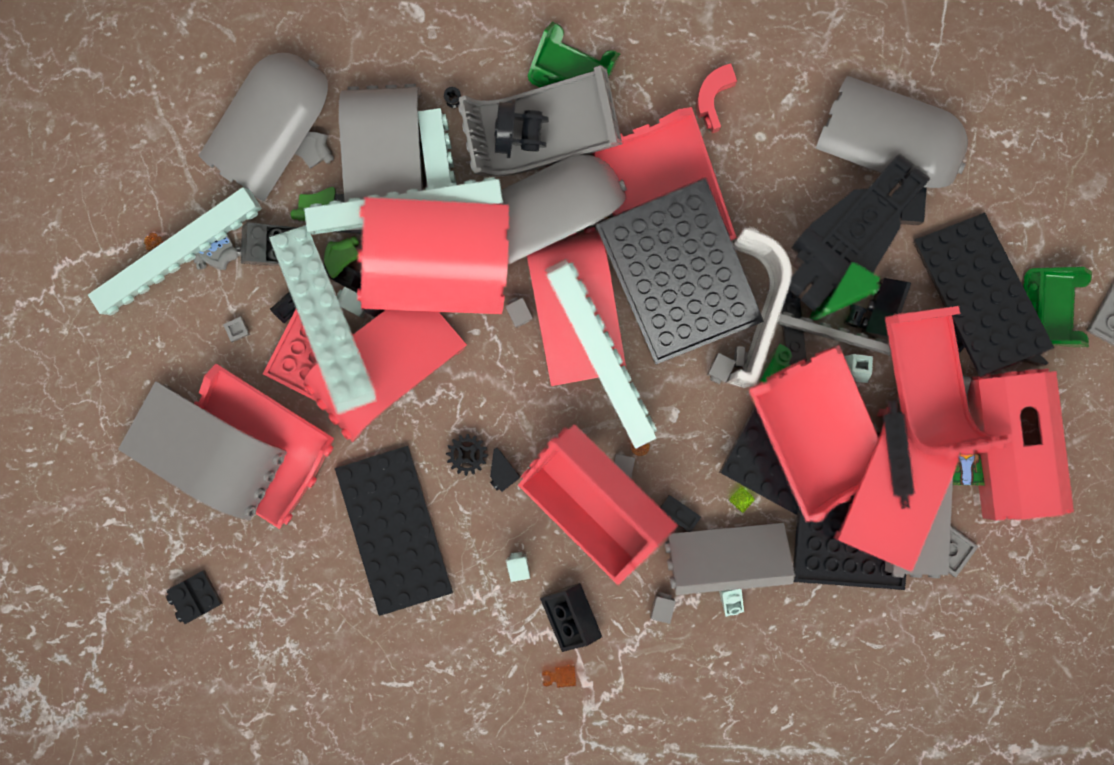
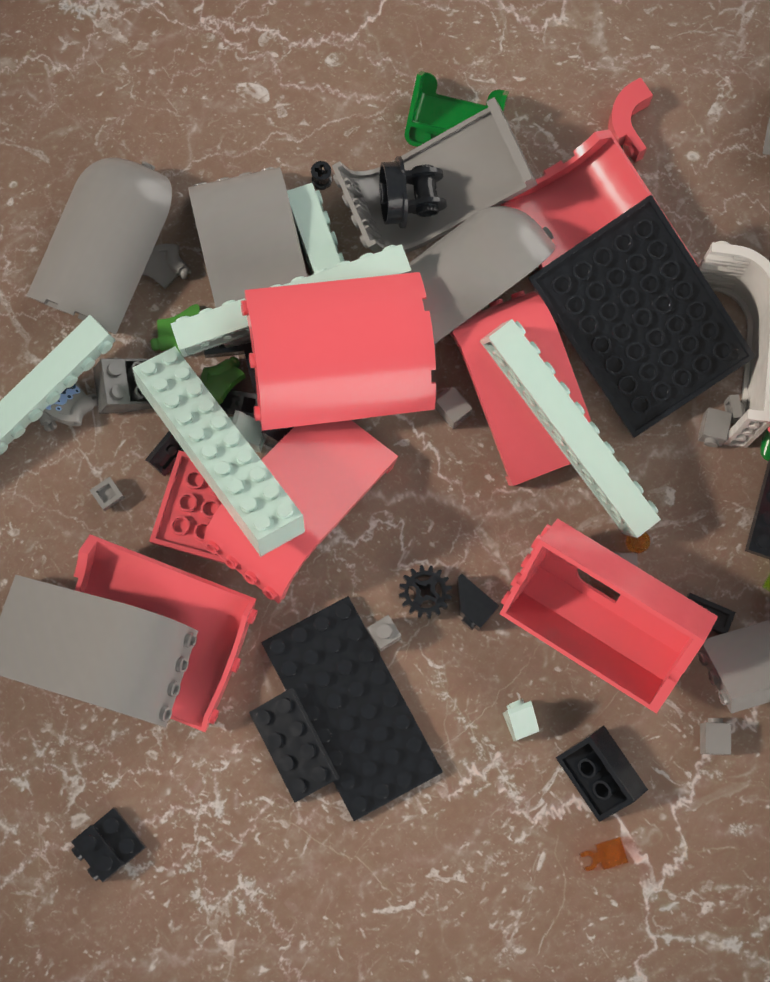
camera: 10 degrees left, 10 degrees down
(344, 551) = (294, 745): none -> black plate
(428, 480) = (384, 633): none -> light grey brick

